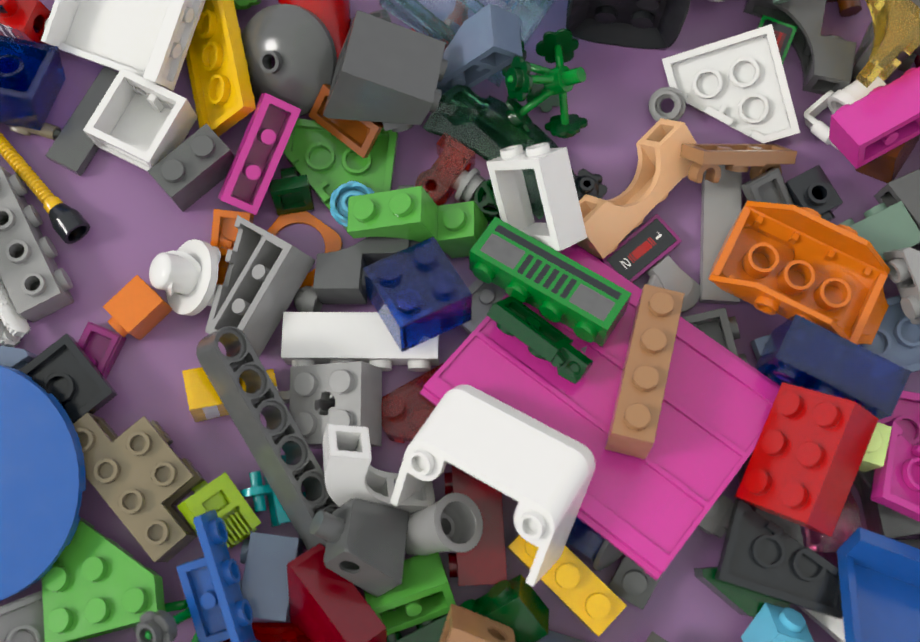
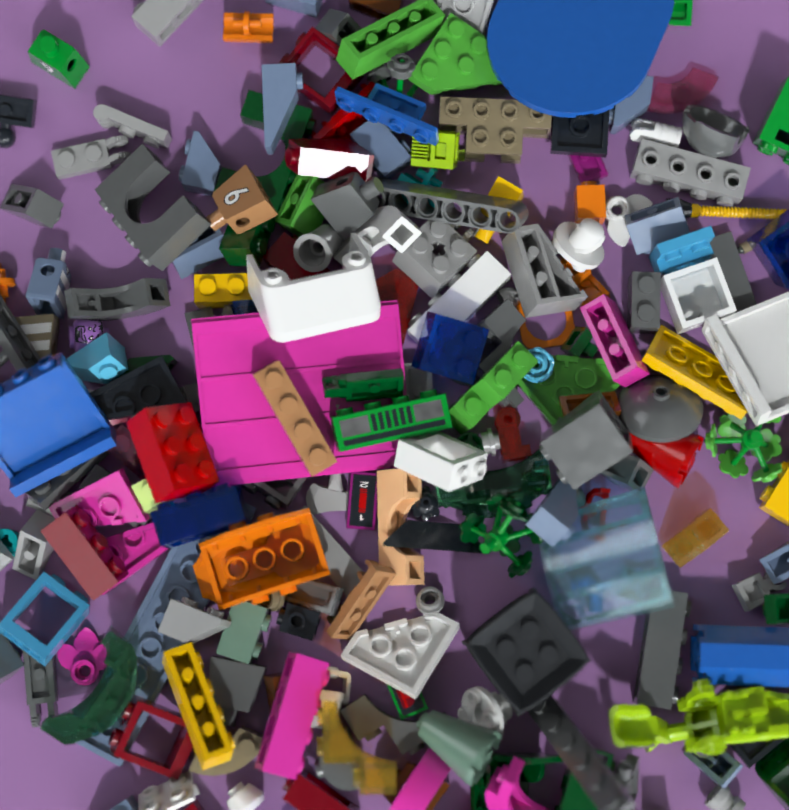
camera: 140 degrees right, 5 degrees up
(100, 218) = (656, 225): none -> sand blue brick
(108, 172) = (682, 251): none -> dark azure plate
(117, 259) = (617, 225): none -> white plate
(611, 154) = (431, 536): none -> black sticker

